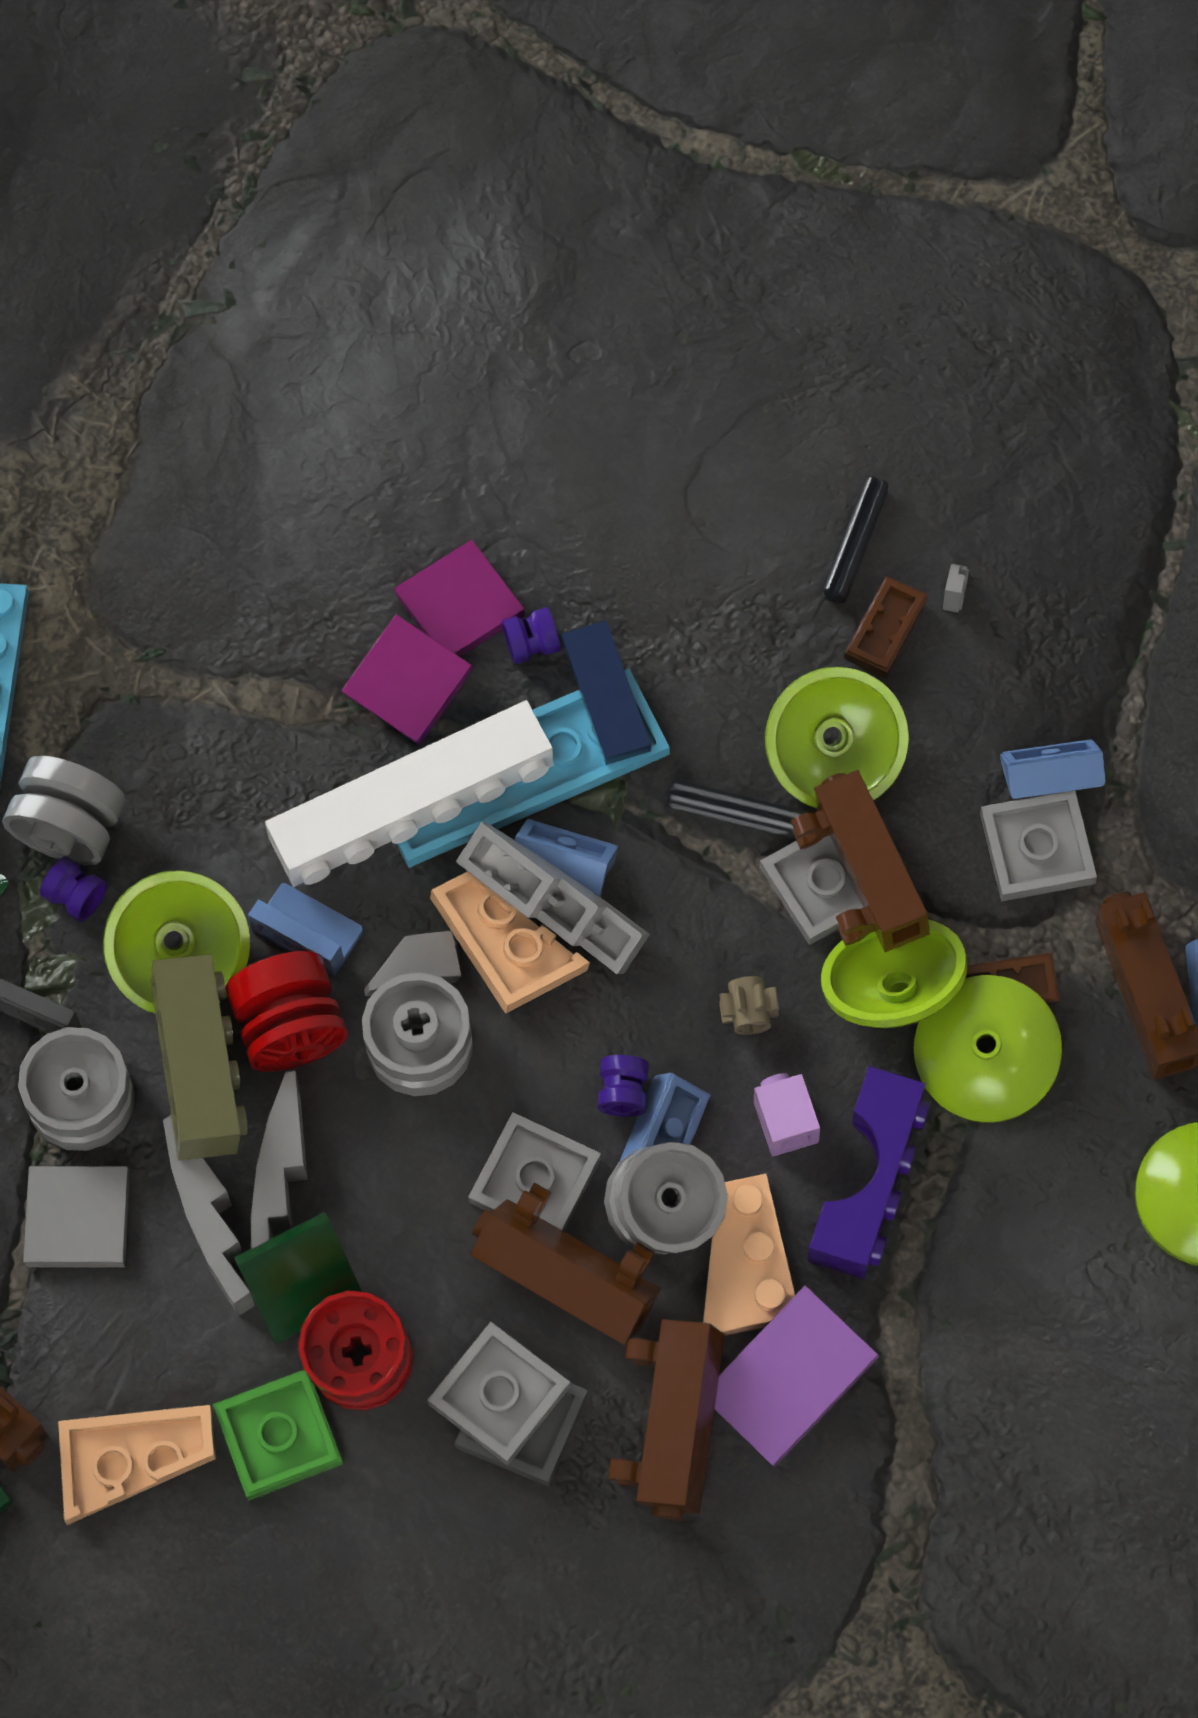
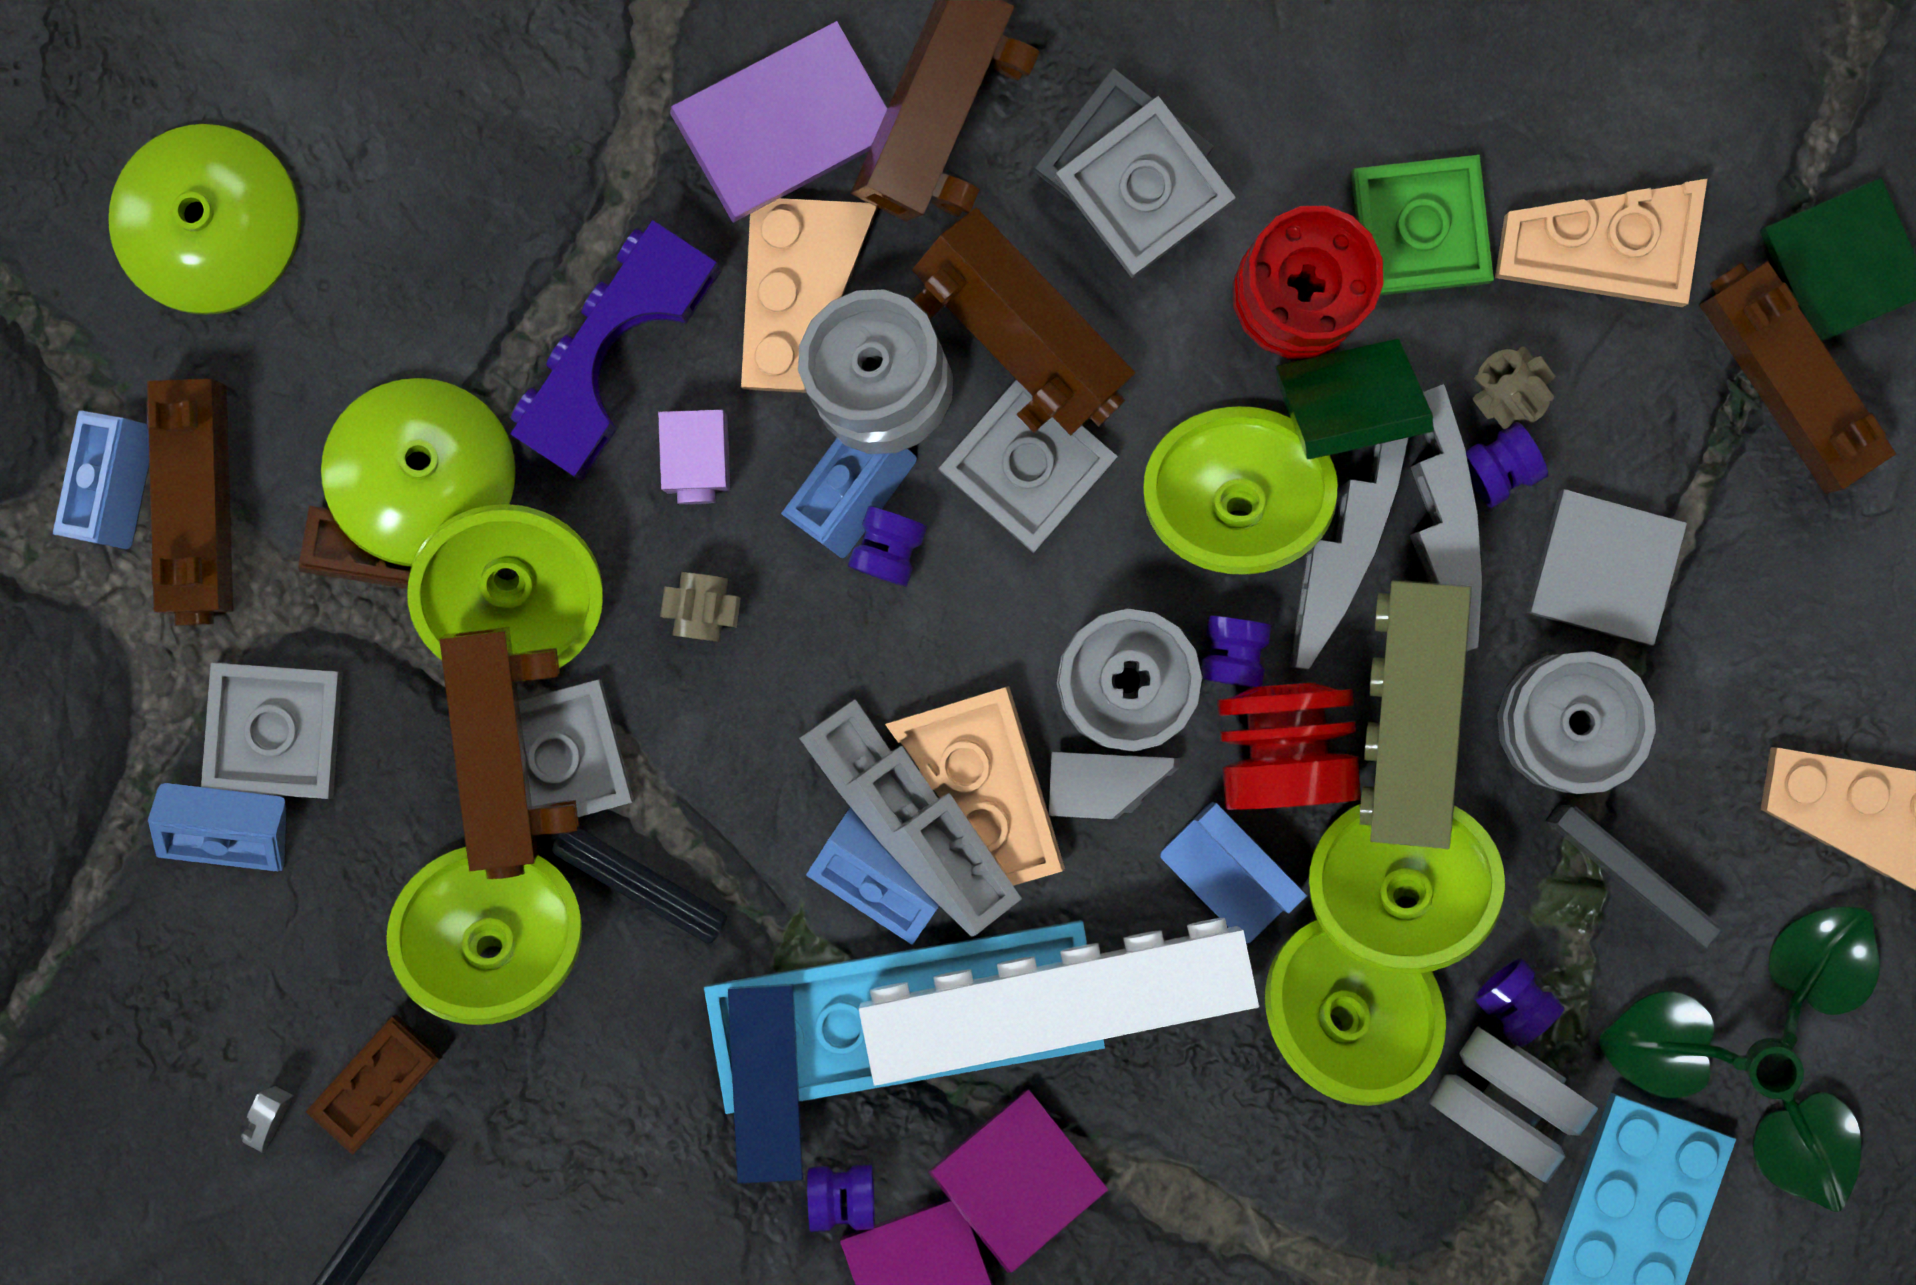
camera: 170 degrees left, 20 degrees up
(171, 819) = (1387, 1018): none -> lime dish
(173, 1265) = (1505, 464): none -> dark purple wheel
(178, 1322) = (1514, 387): none -> dark tan gear
(343, 1078) = (1235, 651): none -> dark purple wheel
(397, 1207) = (1234, 463): none -> lime dish

